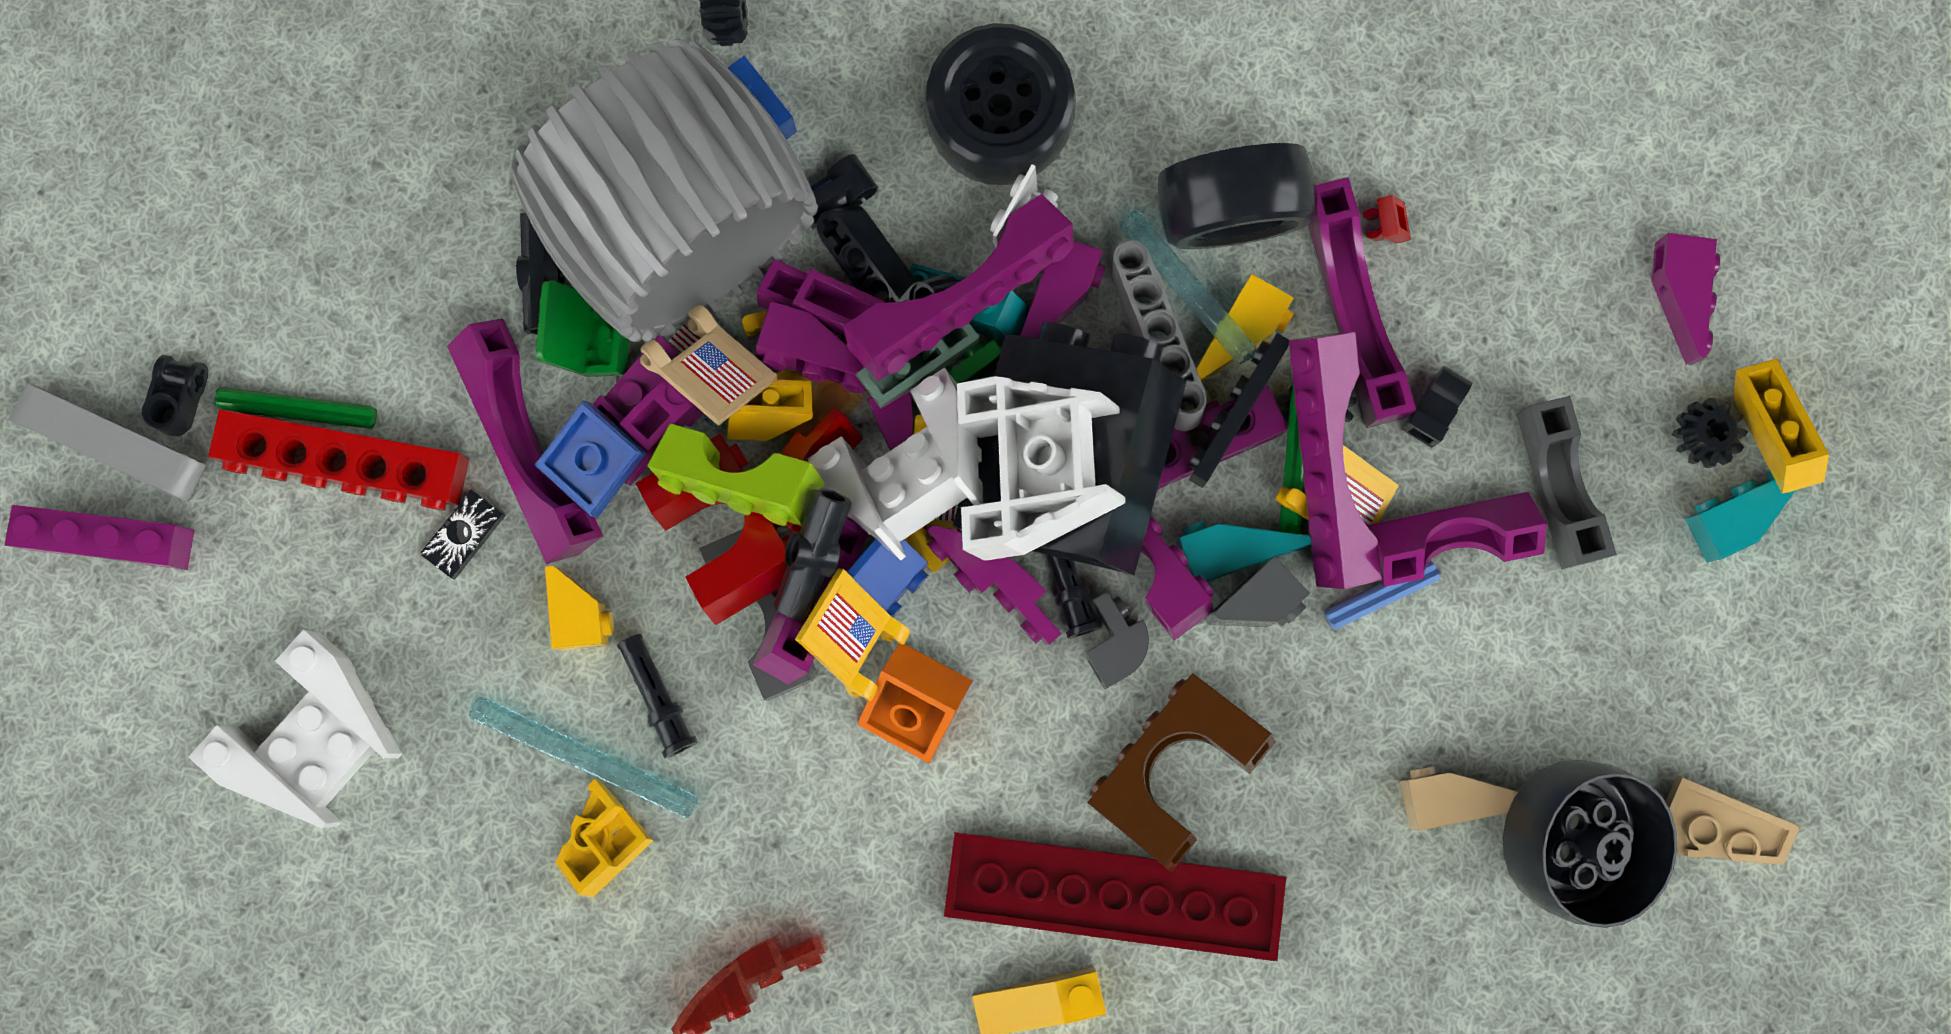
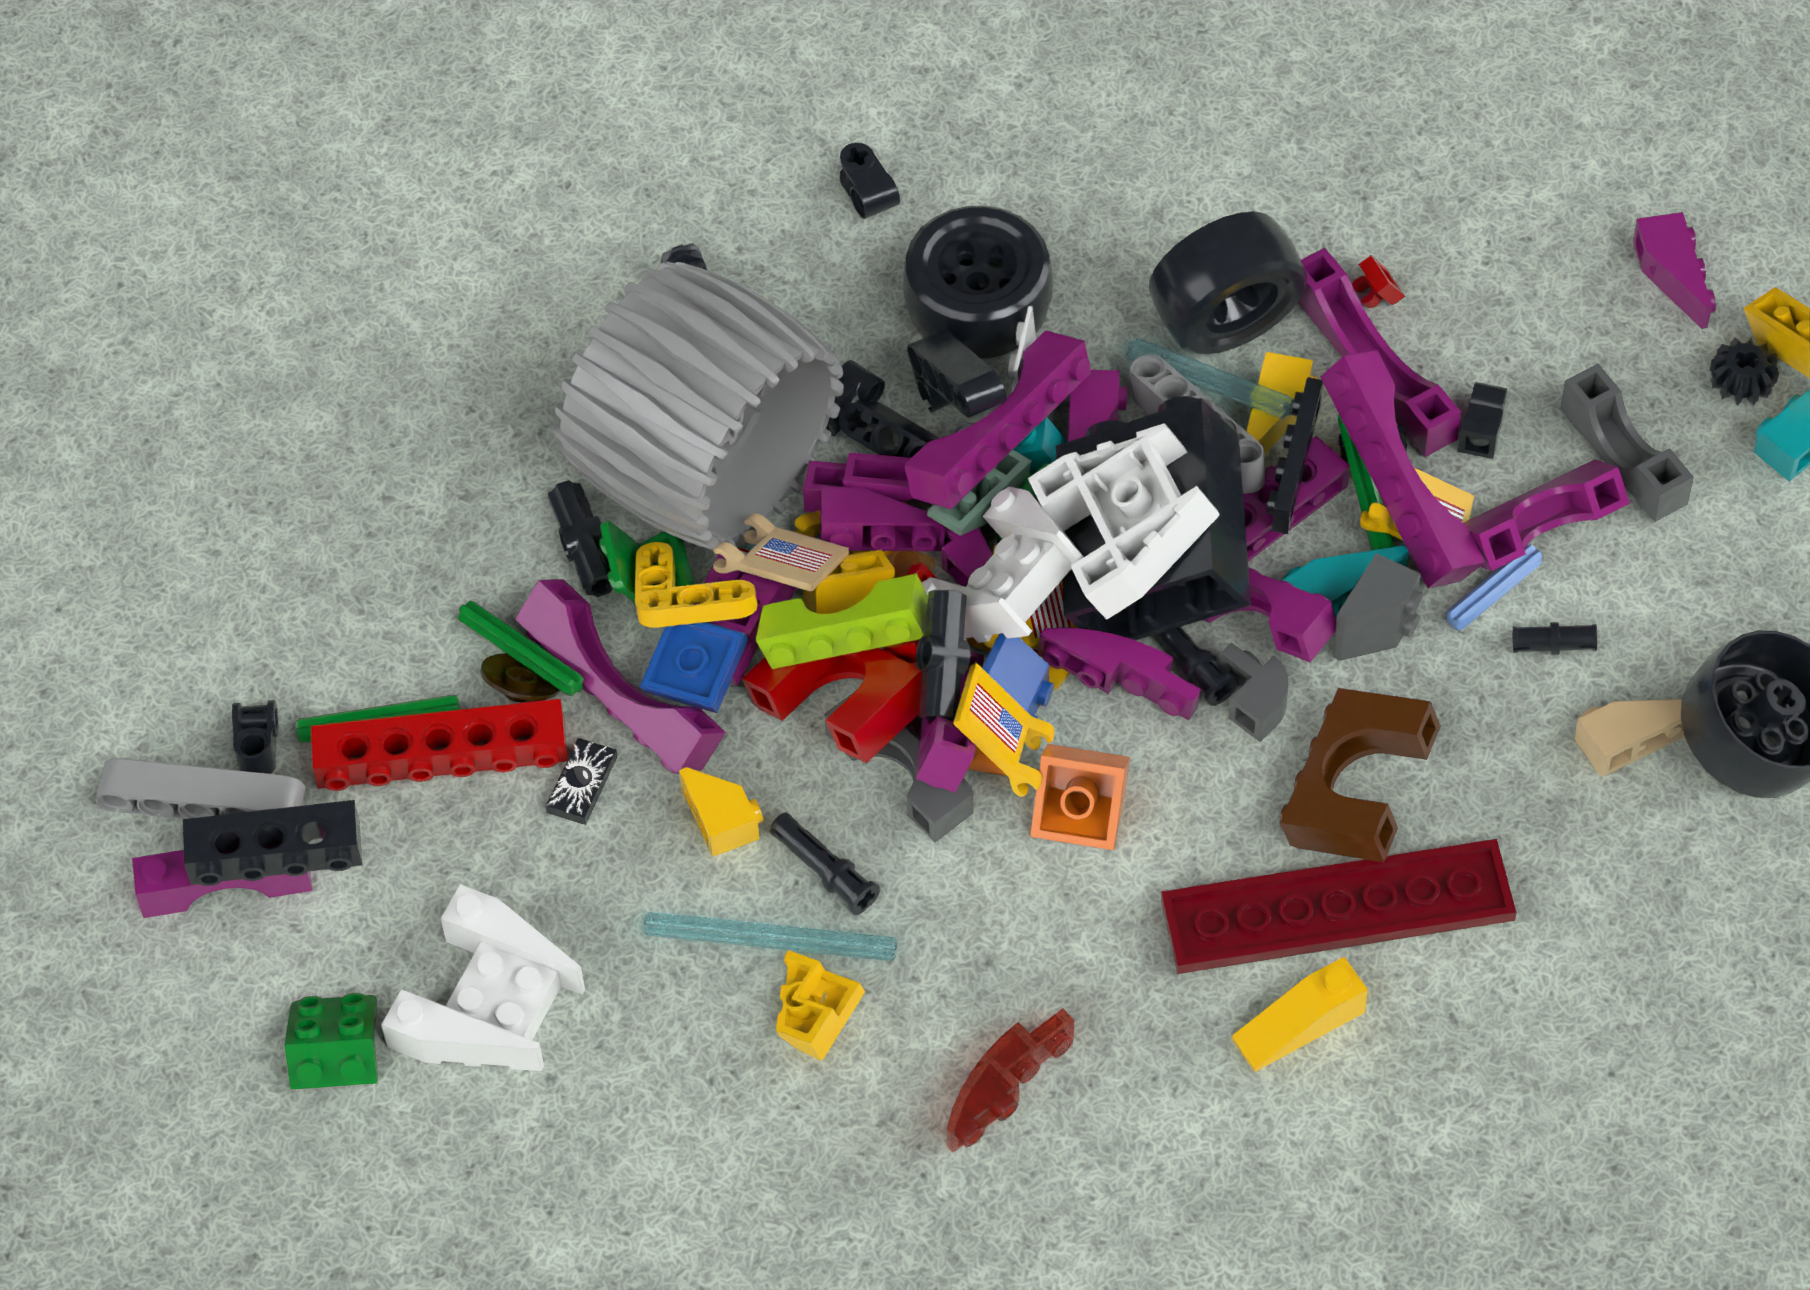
camera: 15 degrees left, 25 degrees down
(64, 530) = (255, 830): none -> black brick
(152, 738) = (331, 1041): none -> green bracket
(435, 397) = (515, 679): none -> dark brown dish
(445, 377) = (520, 648): none -> green axle
(587, 389) = (670, 605): none -> yellow beam
(935, 223) = (954, 375): none -> black beam
(1419, 672) = (1554, 638): none -> black pin

